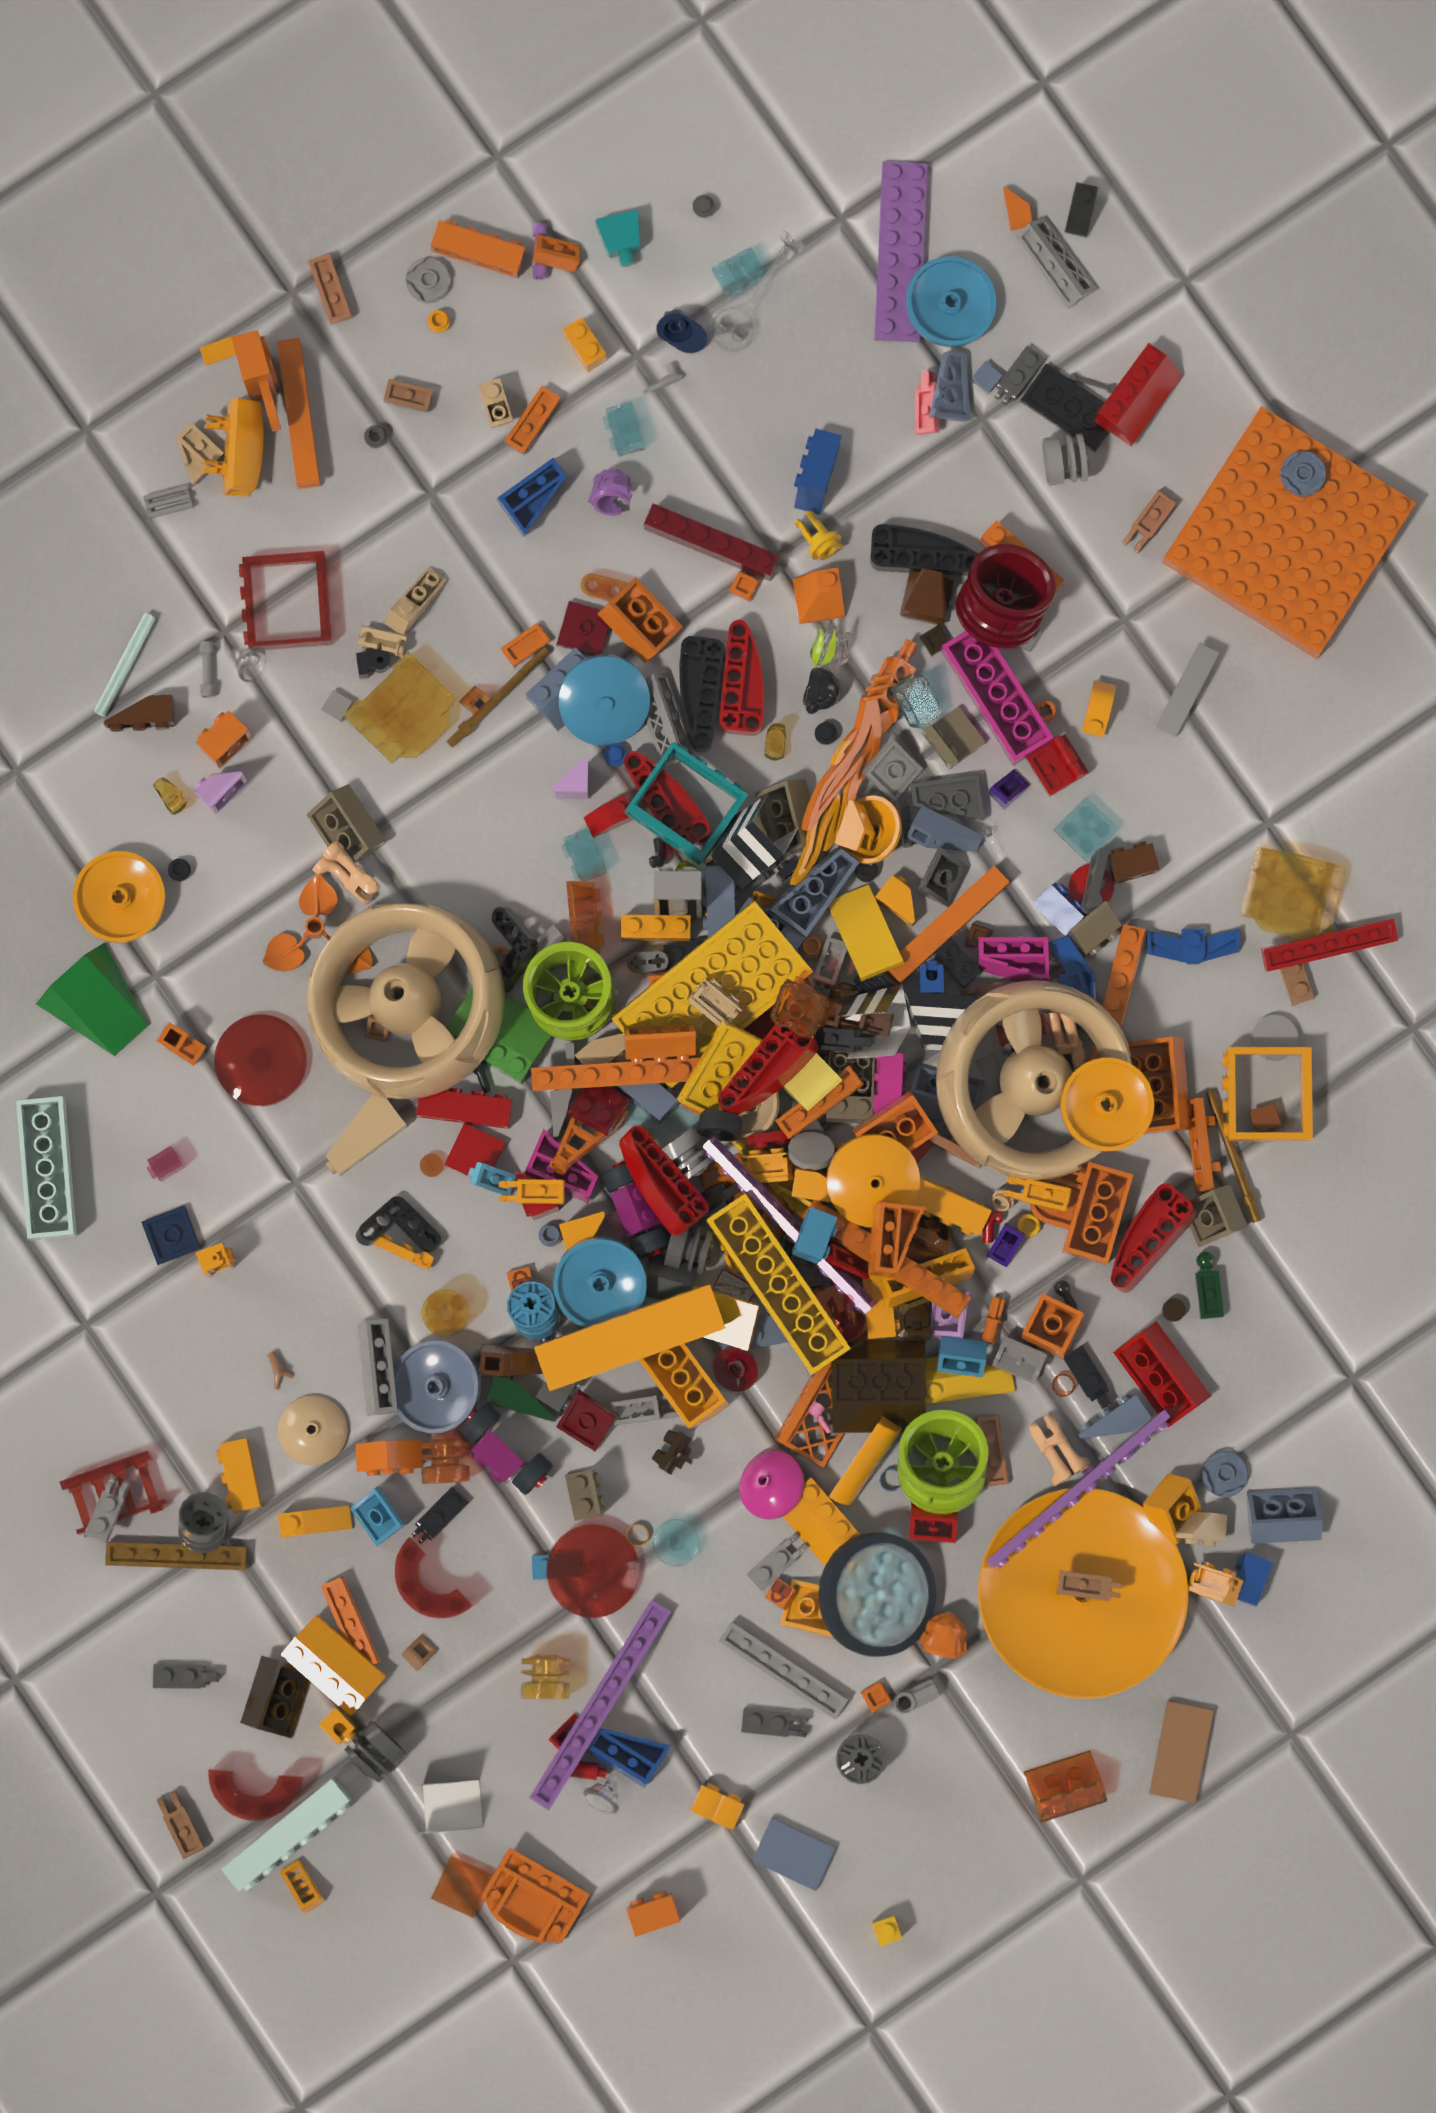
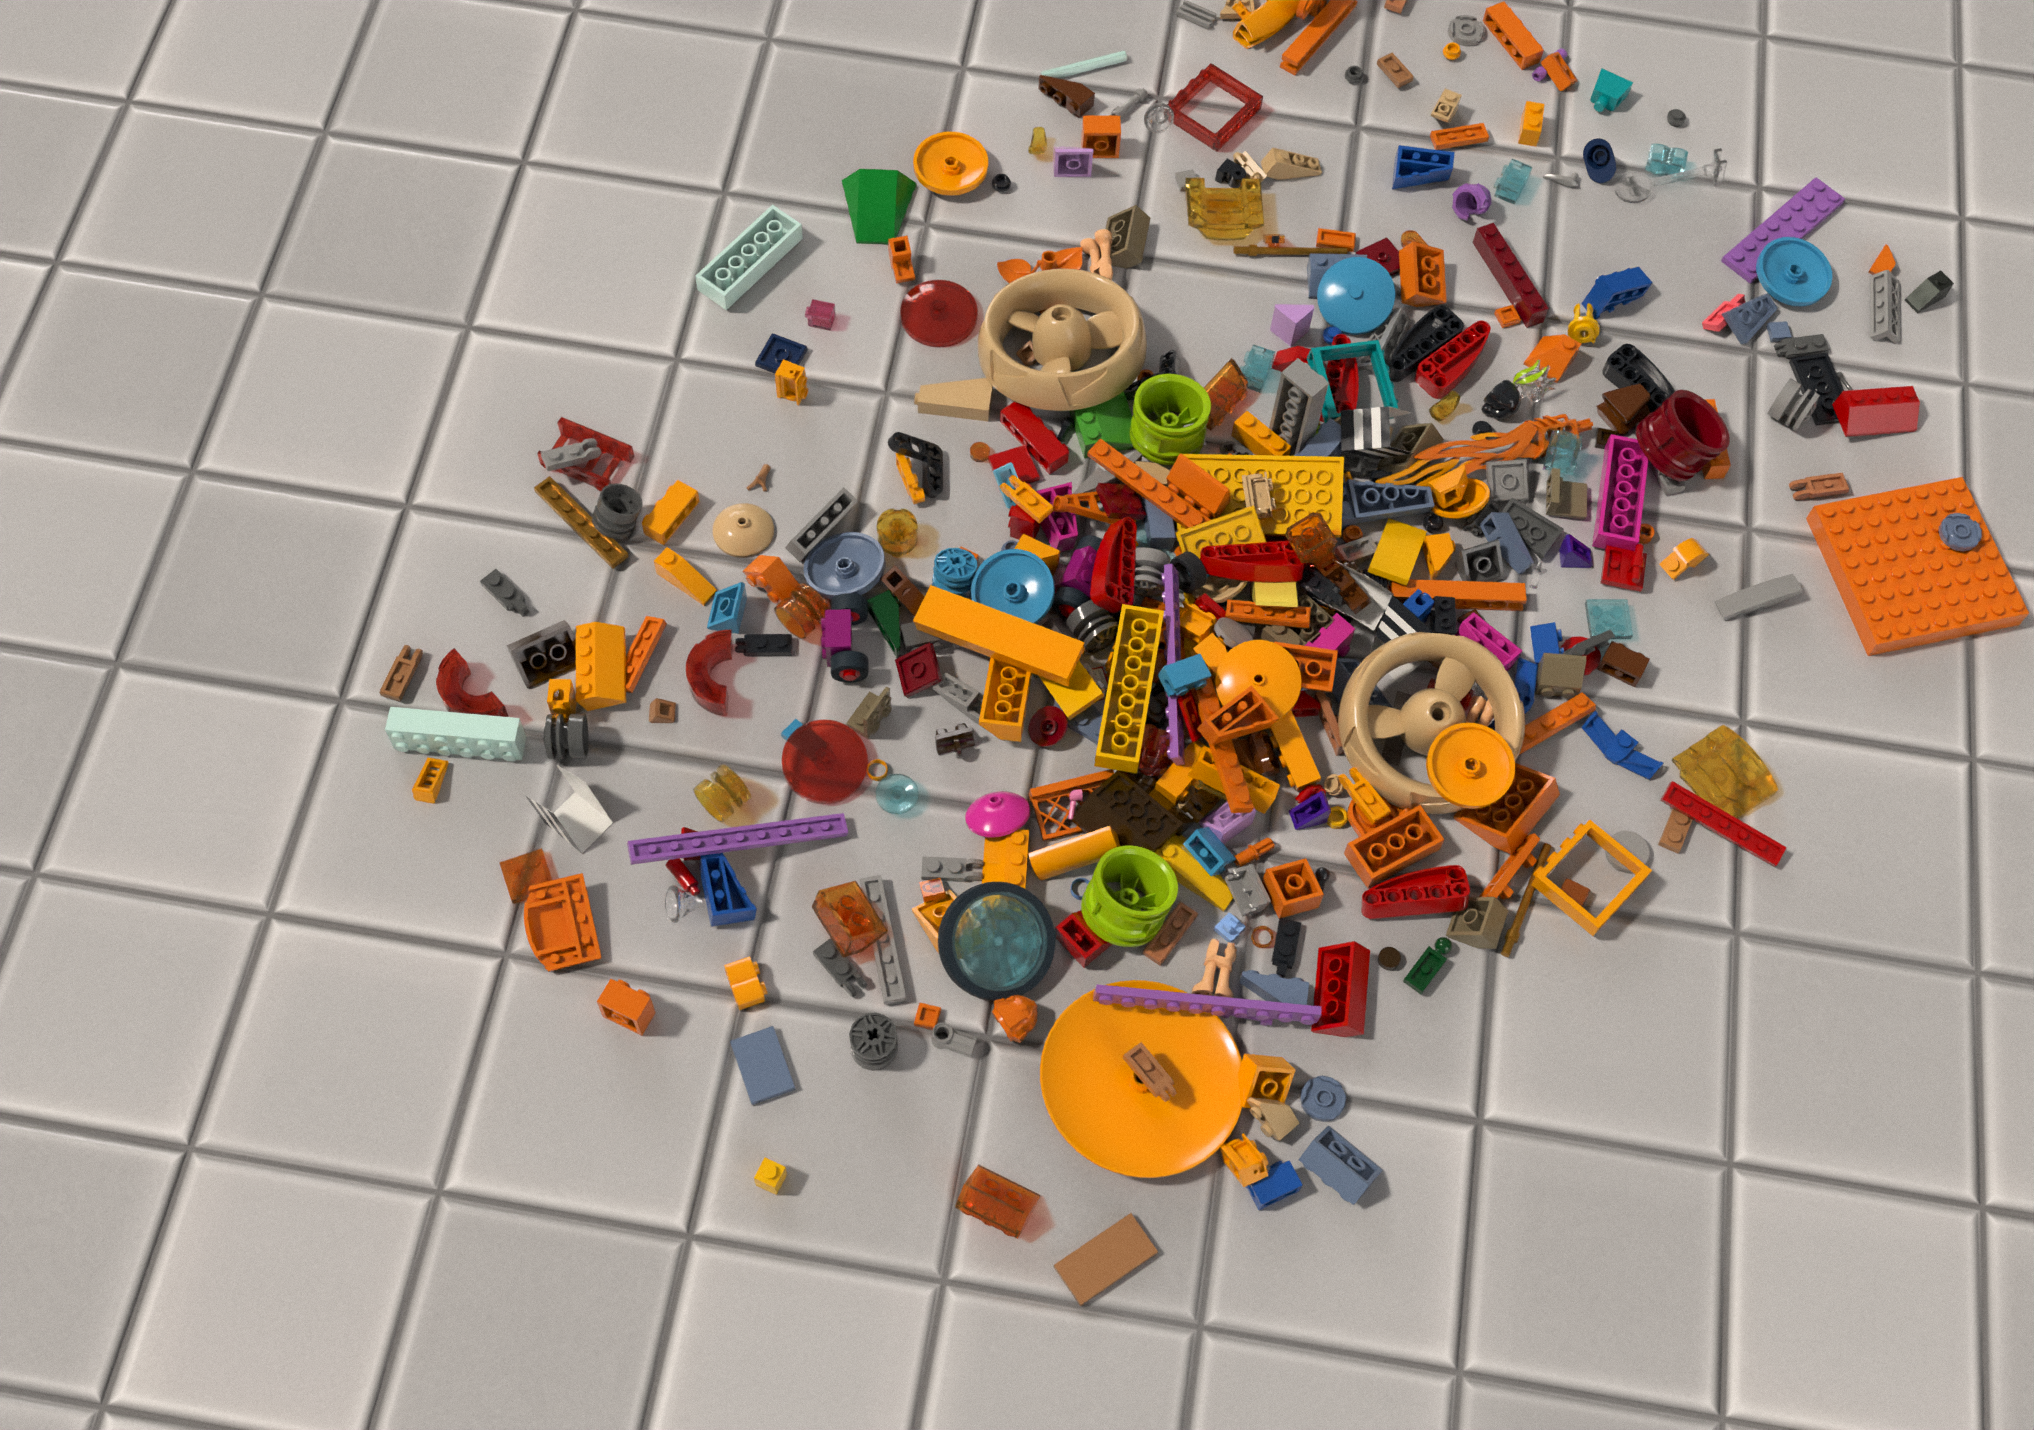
camera: 40 degrees right, 20 degrees down
(744, 1681) = (848, 918): none -> clear orange slope
(1032, 1402) = (1229, 928): none -> light blue tile

